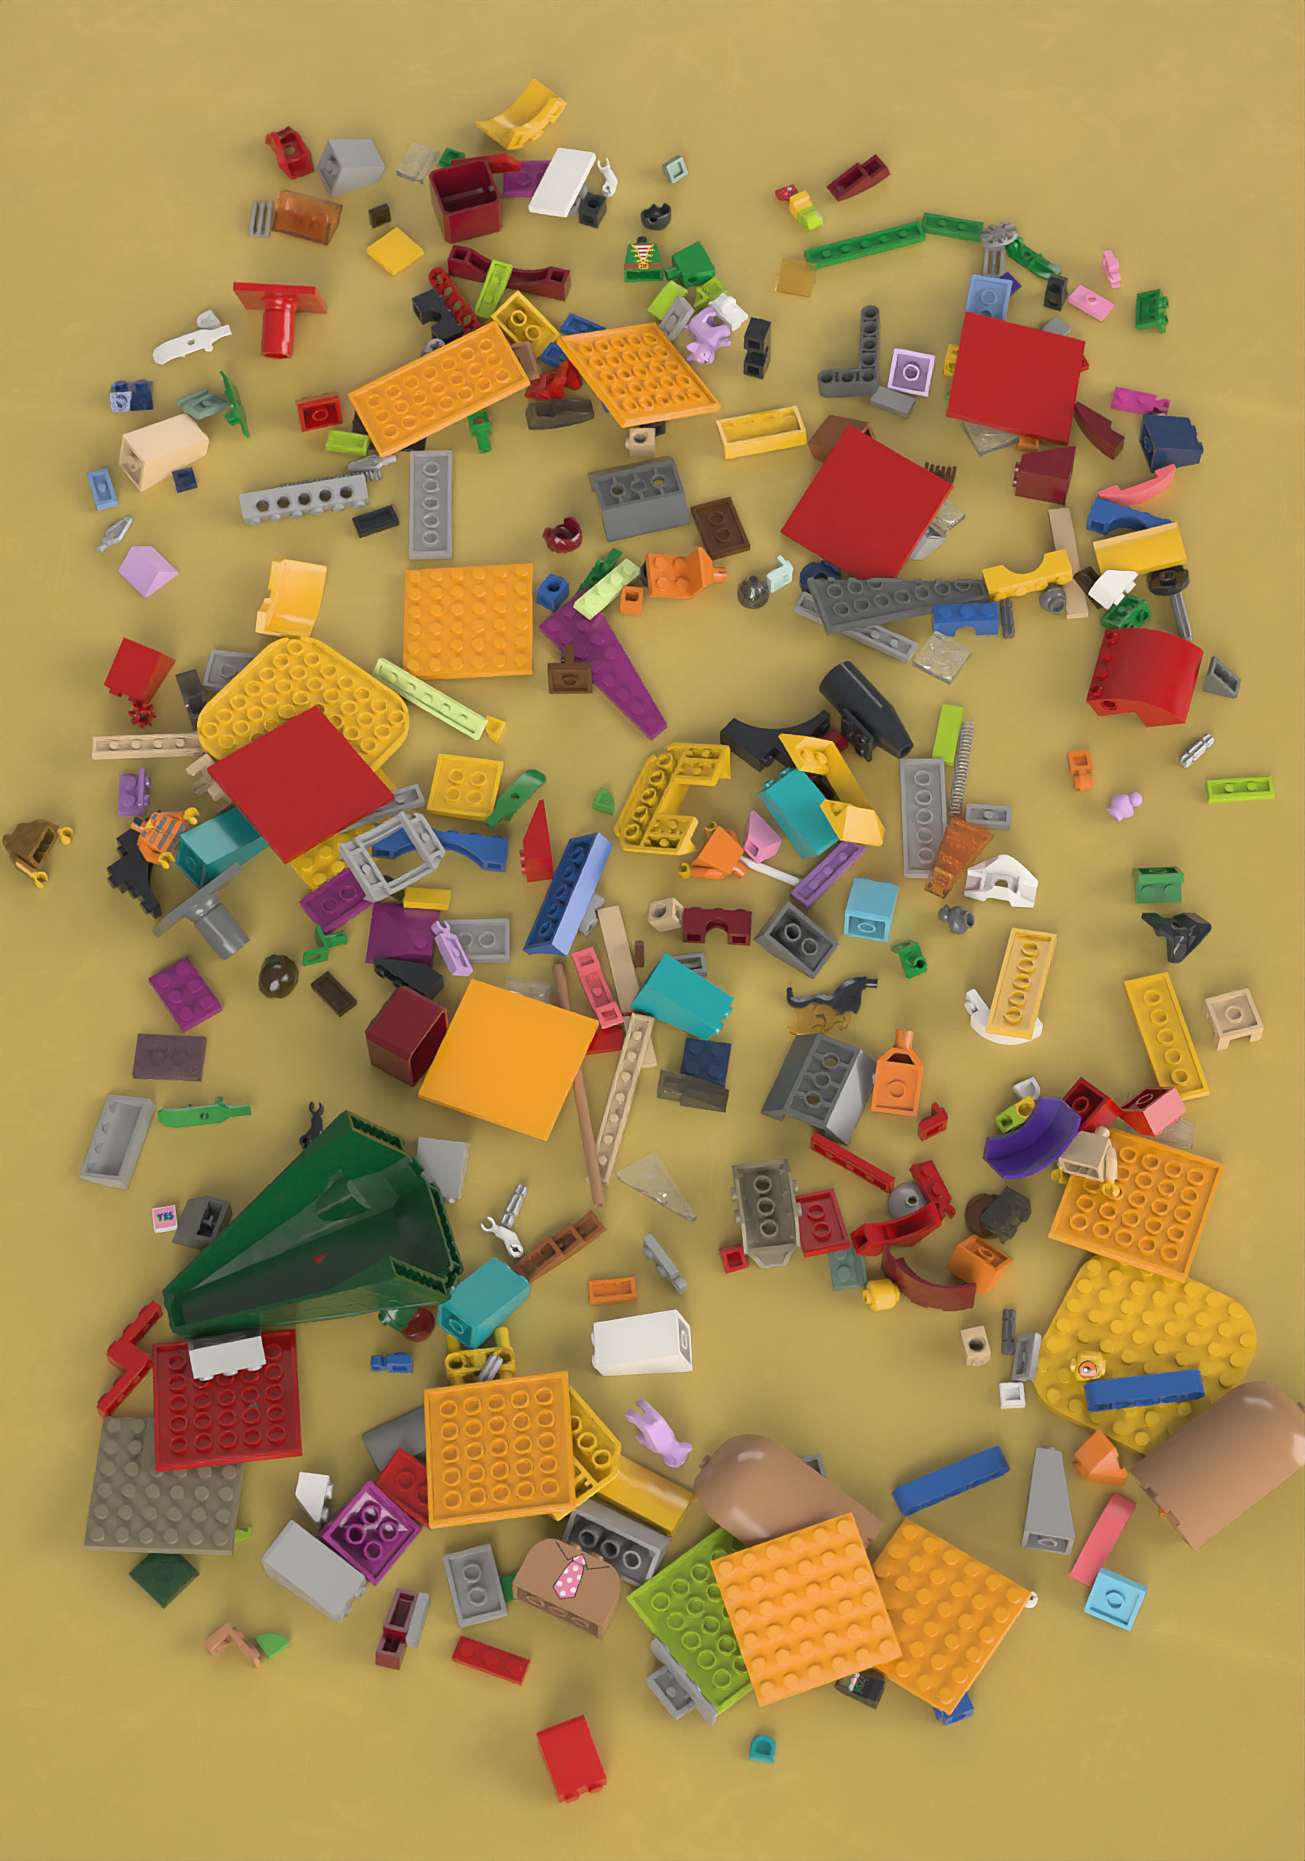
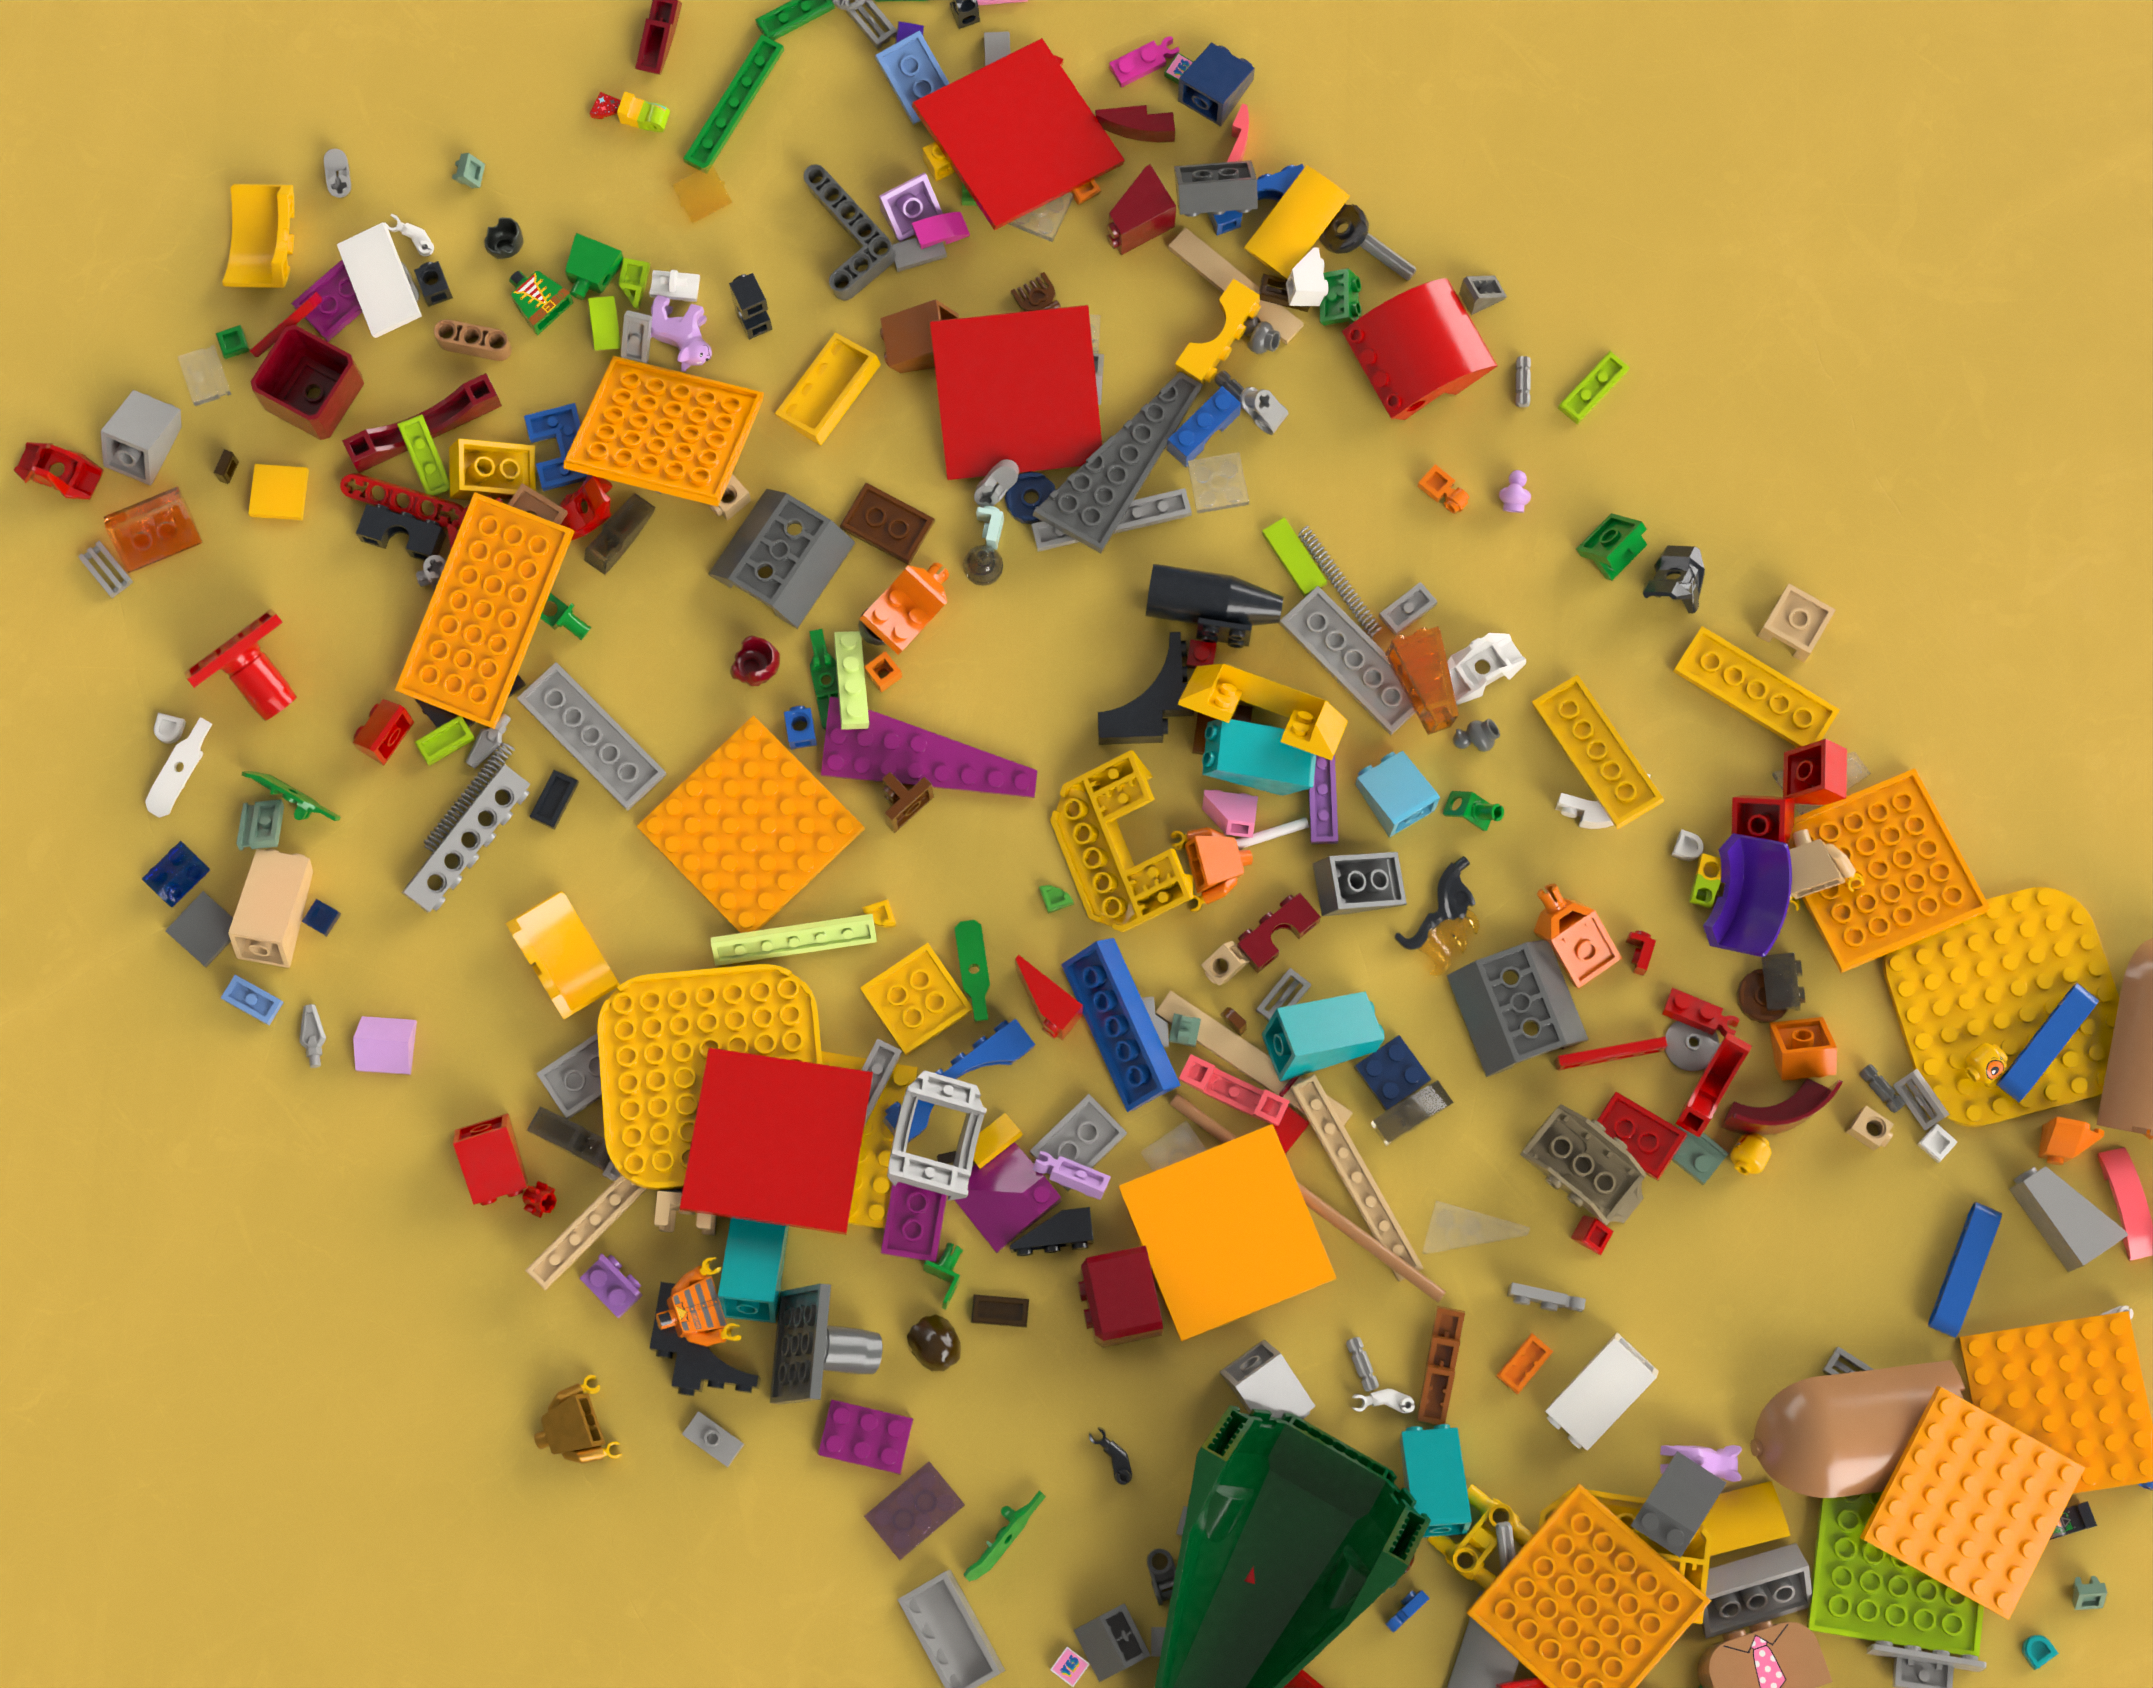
camera: 45 degrees left, 15 degrees up
(100, 921) = (713, 1439): none -> light grey plate
(110, 432) = (202, 929): none -> dark grey tile
(583, 254) = (481, 348): none -> medium nougat beam
(599, 117) = (335, 161): none -> light grey piece
(603, 931) = (1184, 1030): none -> sand green tile
(611, 1433) = (1678, 1504): none -> dark grey slope
(815, 553) = (987, 491): none -> light grey piece
(829, 1743) = (2088, 1595): none -> sand green tile
(913, 394) = (940, 228): none -> dark pink slope
(1012, 641) = (1263, 409): none -> light grey piece
(1105, 493) = (1216, 188): none -> dark grey slope

